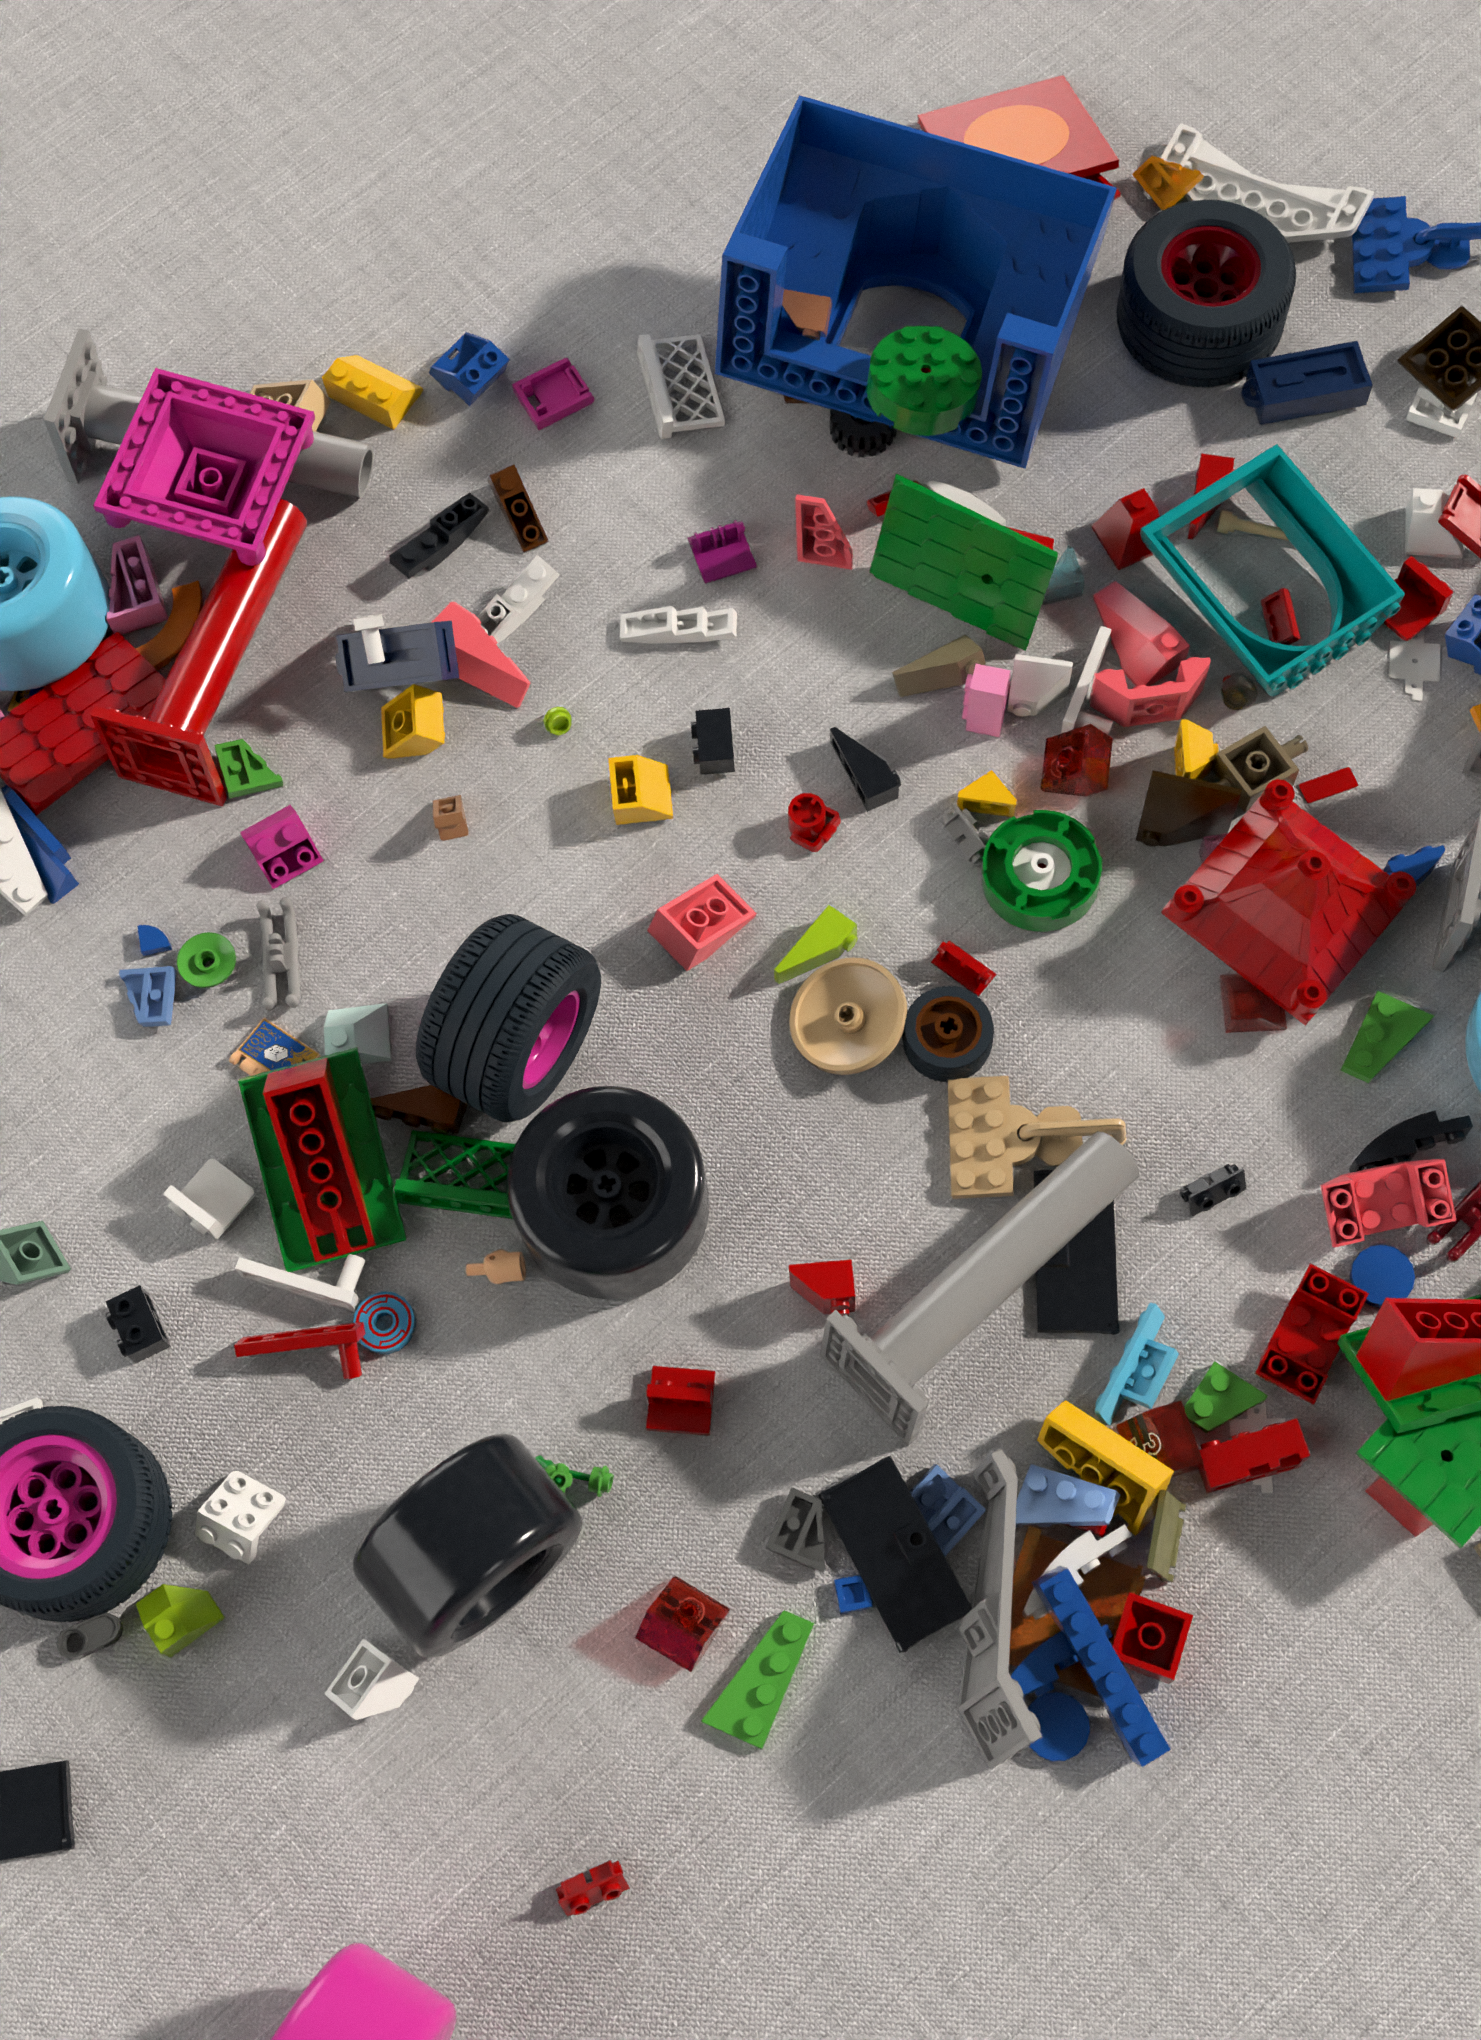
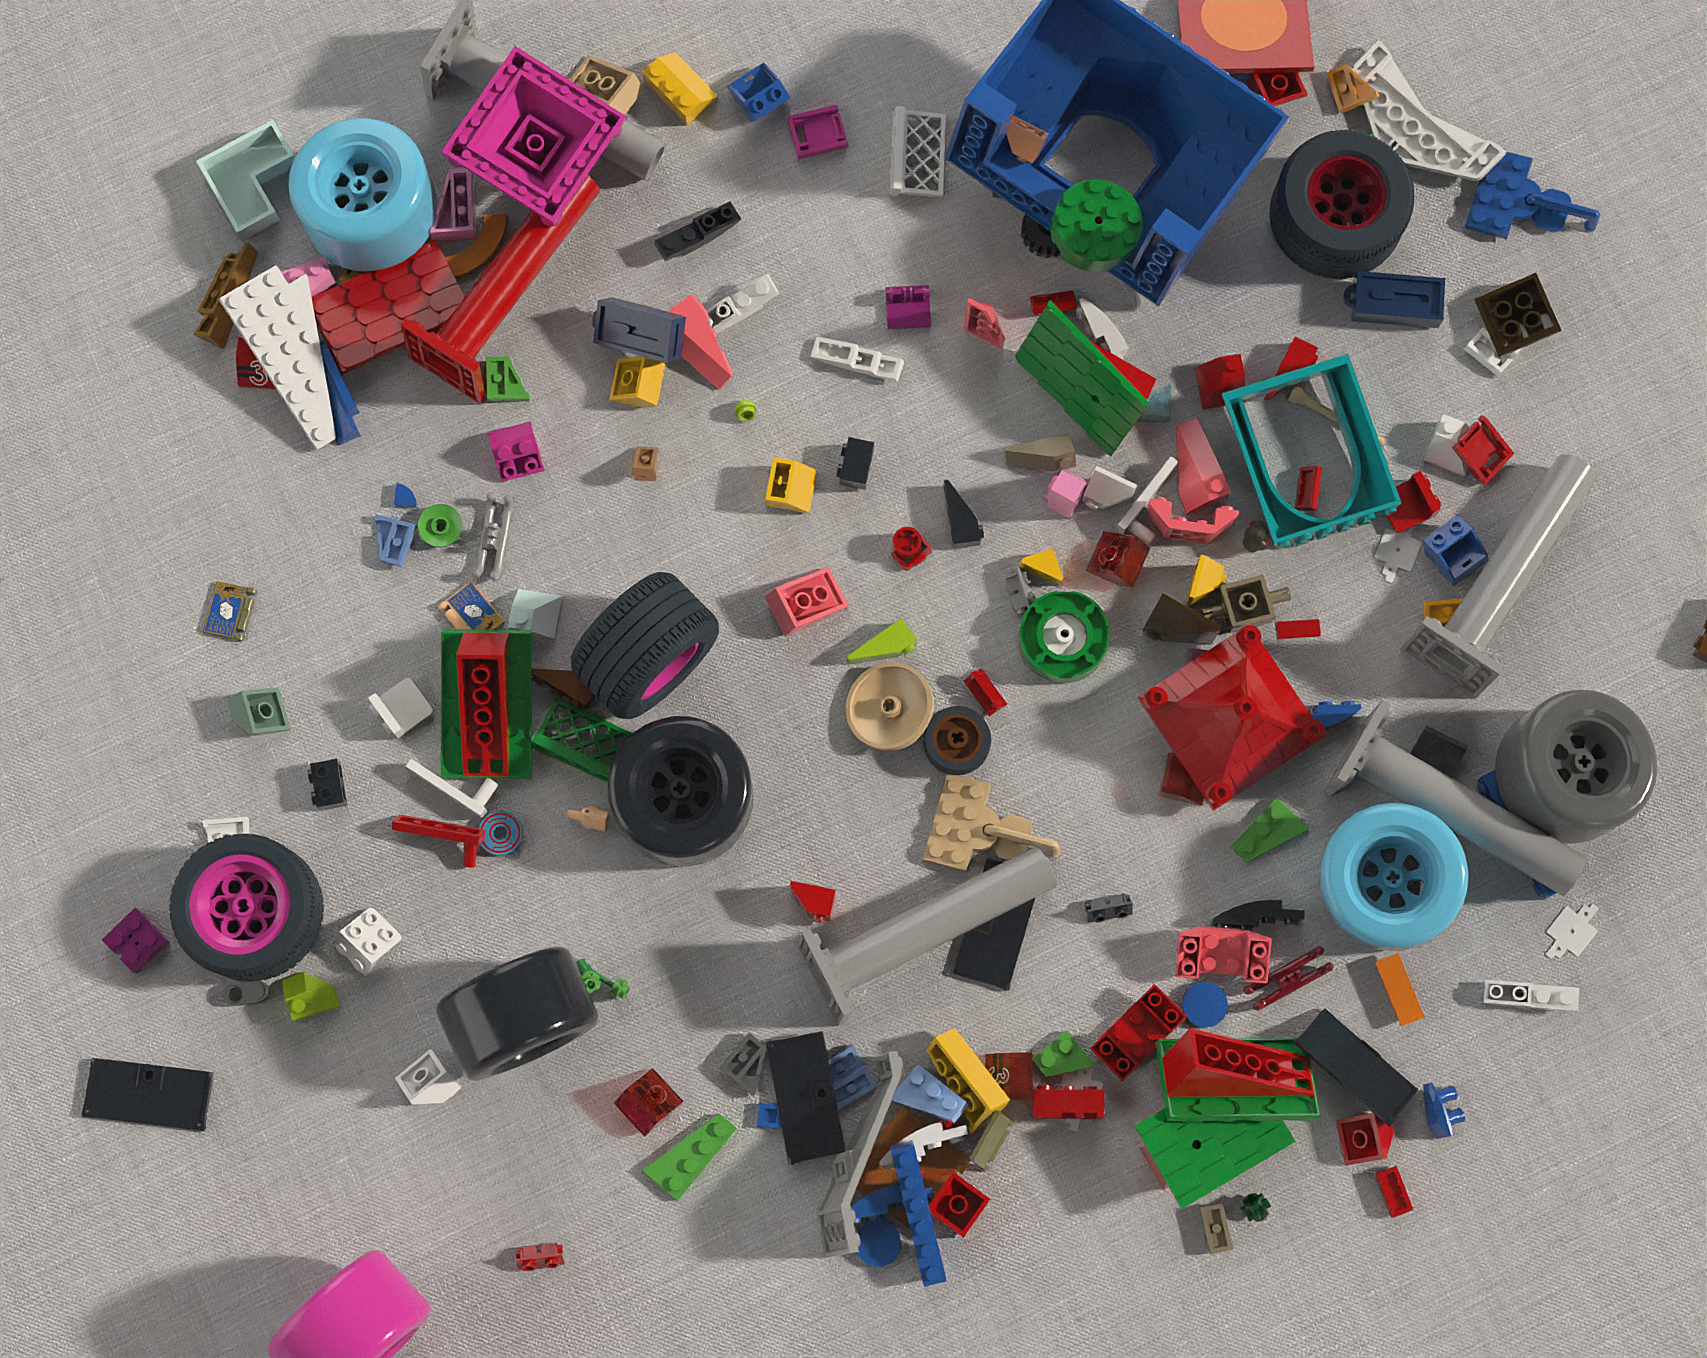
camera: 10 degrees right, 10 degrees up
(371, 636) = (623, 302): white piece -> none
(517, 508) = (763, 225): reddish brown slope -> none
(680, 1400) = (690, 949): red bracket -> none
(1140, 1370) = (1013, 1021): medium azure bracket -> none

